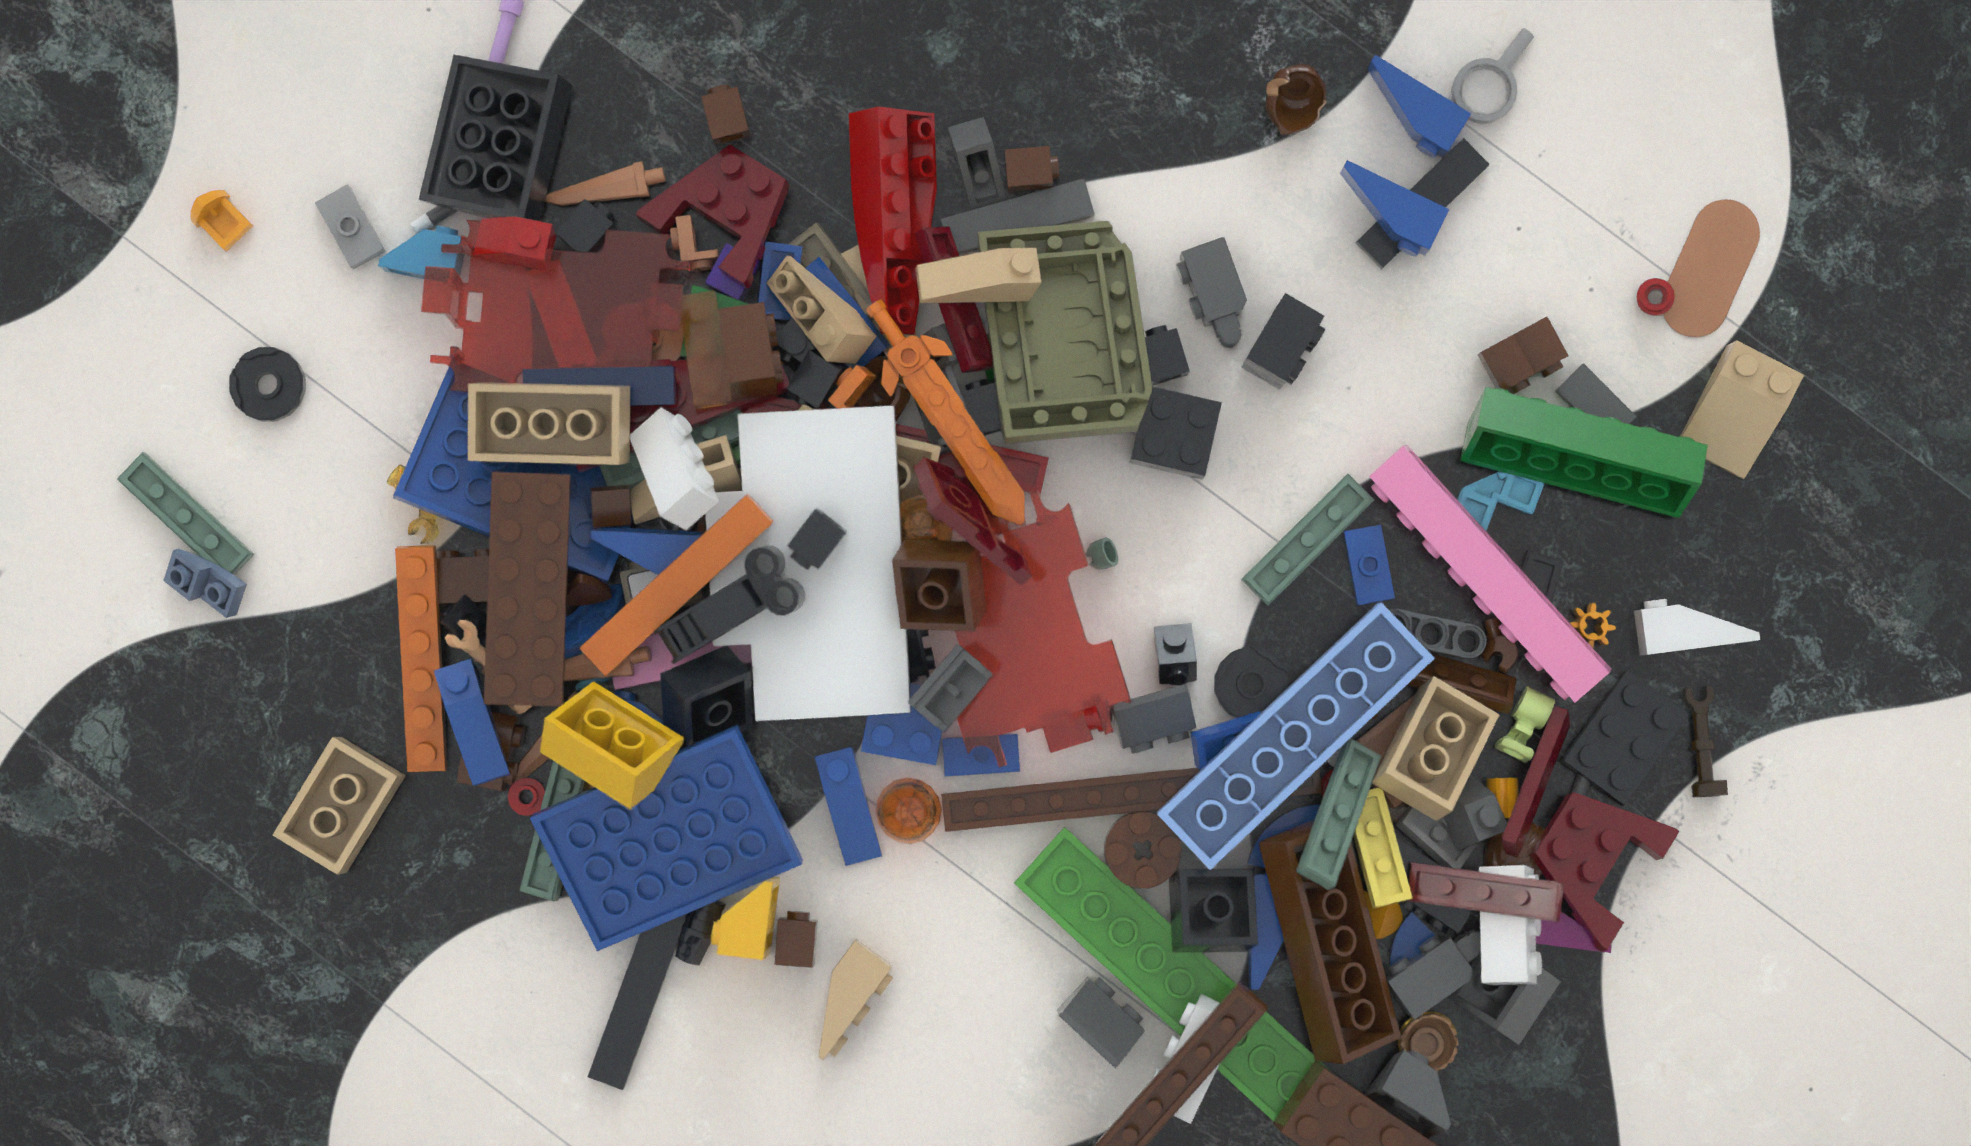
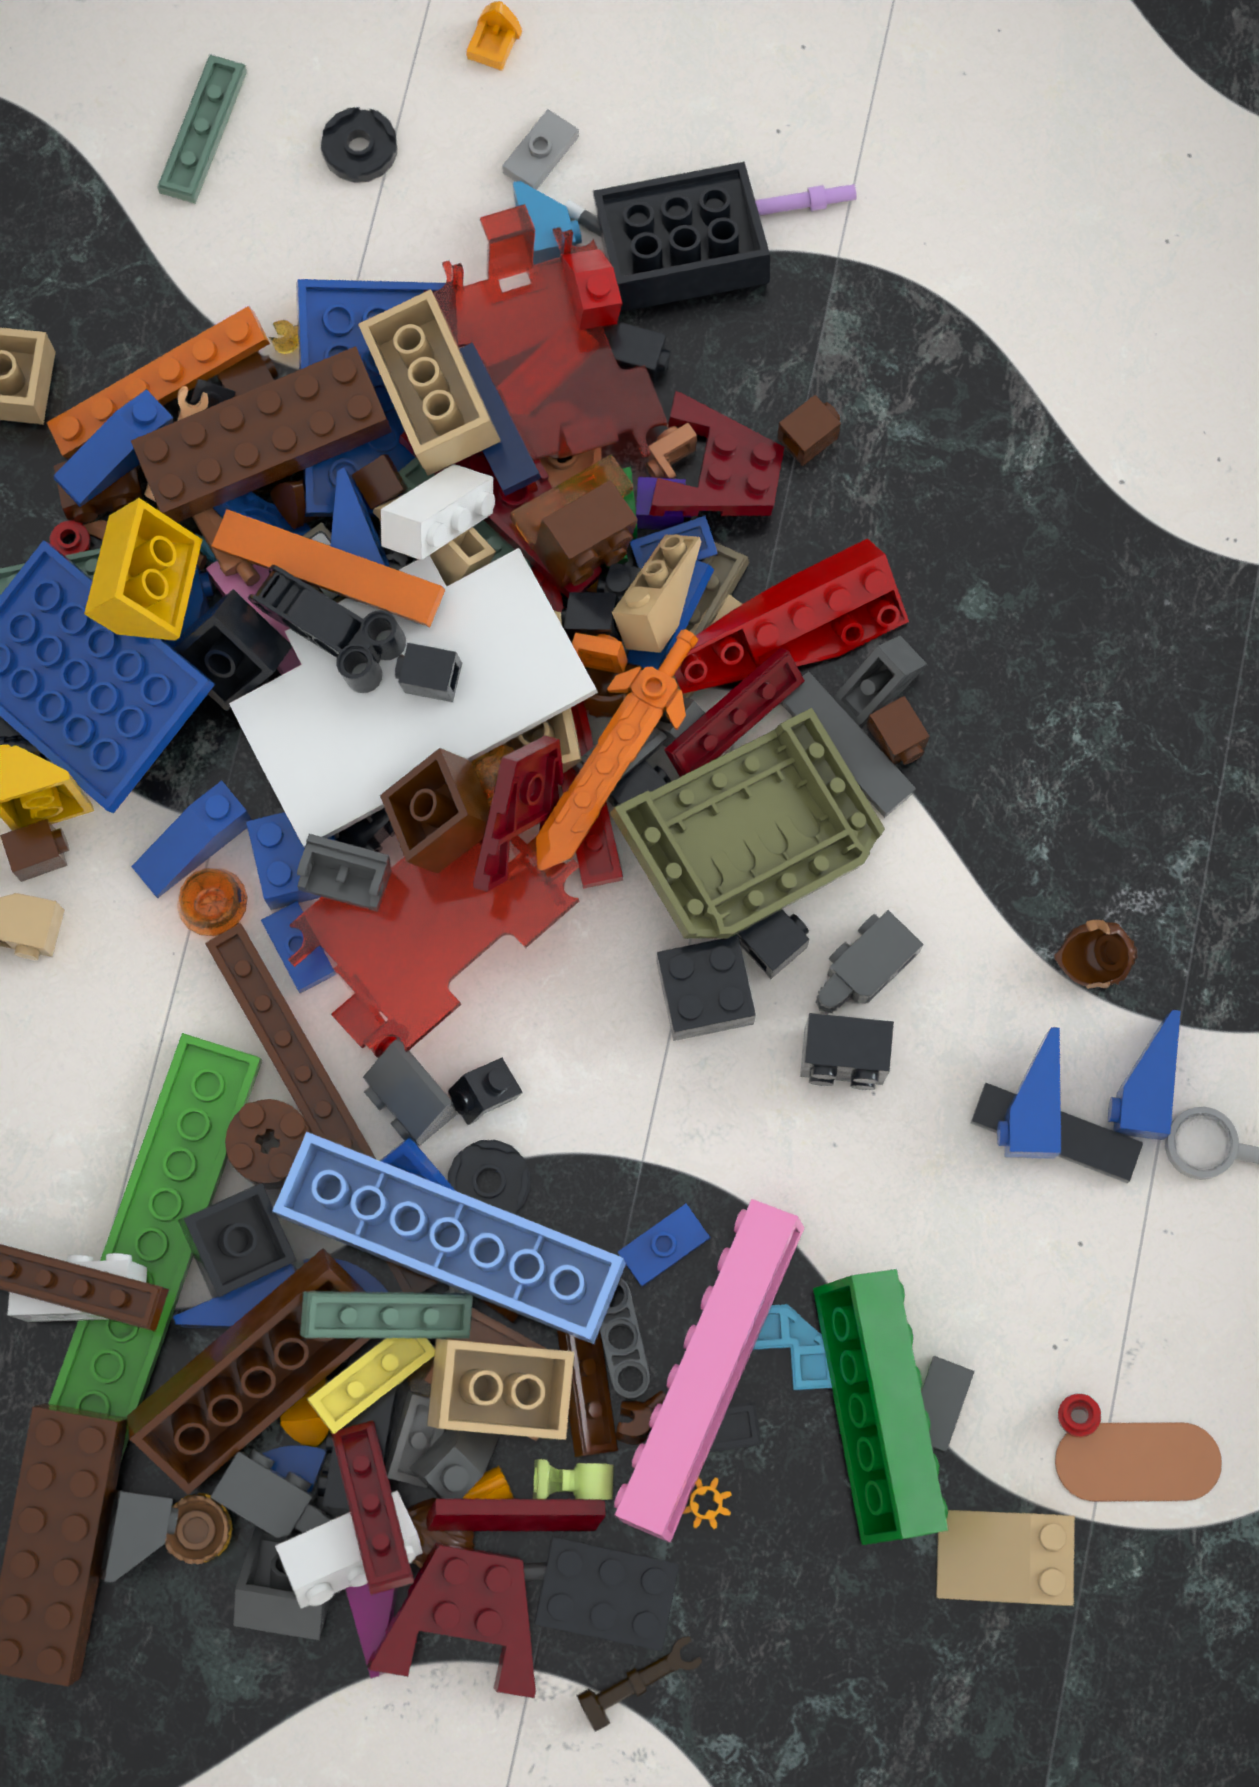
camera: 65 degrees right, 10 degrees down
(202, 579) = (149, 166): sand blue slope -> none
(619, 184) = (696, 366): nougat bar -> none
(981, 277) = (765, 722): tan slope -> none
(1101, 1020) = (77, 1179): dark grey slope -> none
(1102, 553) = (557, 980): sand green hinge -> none
(1307, 539) = (661, 1171): sand green tile -> none
(1524, 355) = (951, 1304): reddish brown brick -> none
(1680, 628) = (746, 1598): white slope -> none

